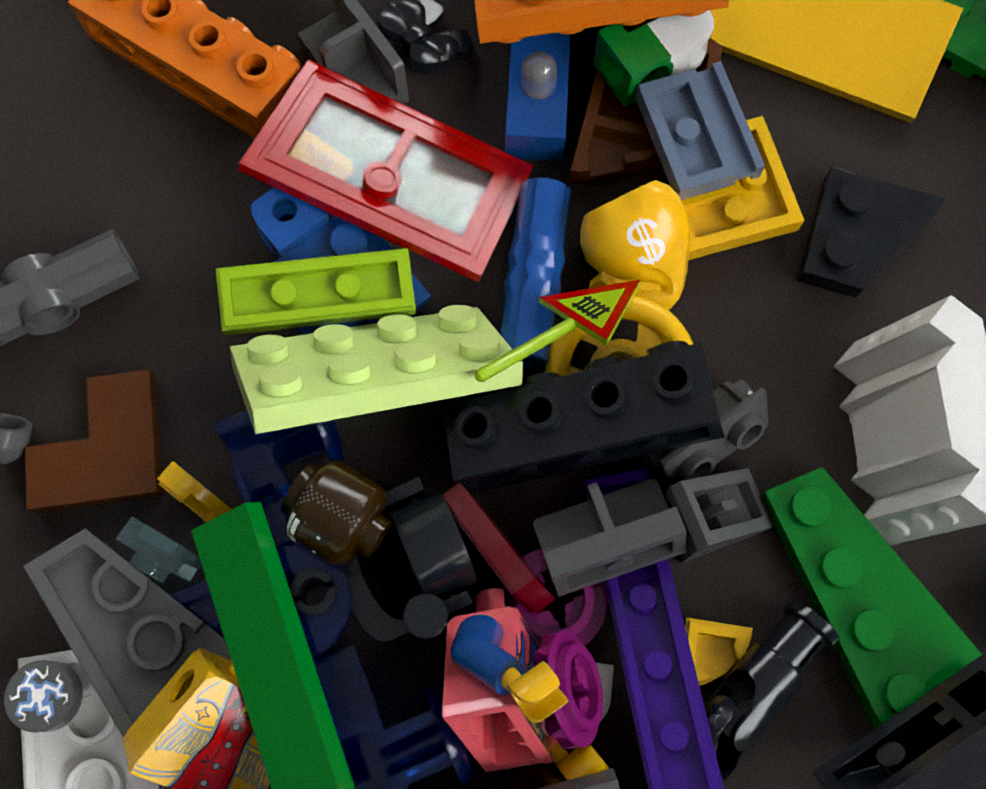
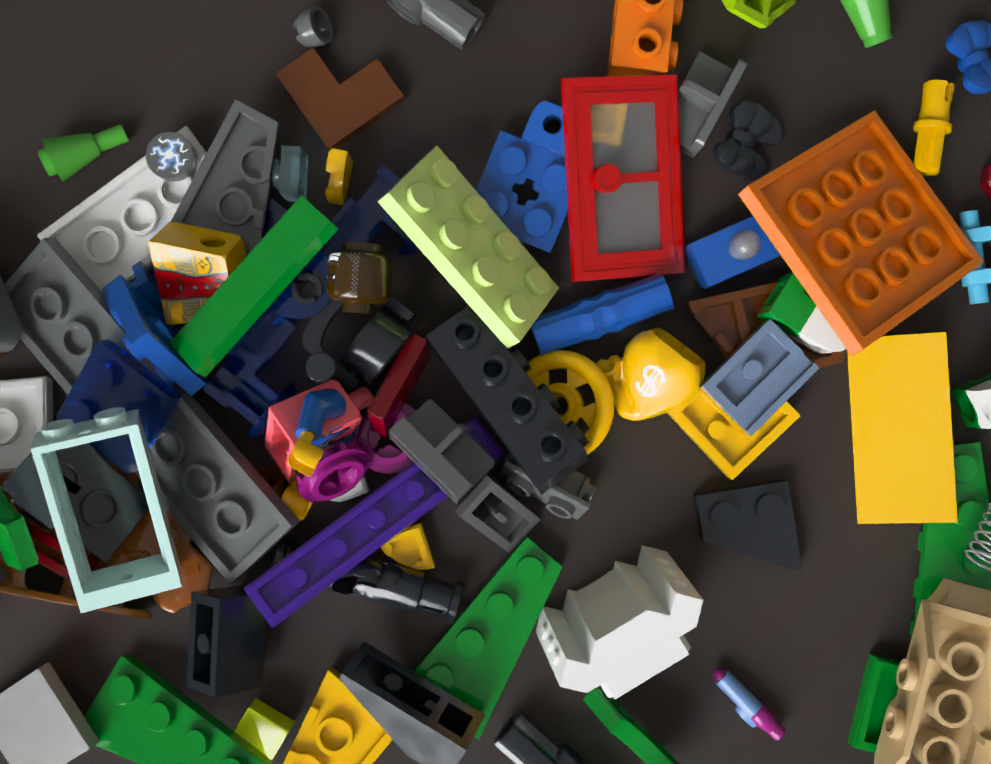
camera: 60 degrees right, 15 degrees up
(315, 291) = (506, 177): lime tile -> none
(591, 310) = (582, 365): piece -> none

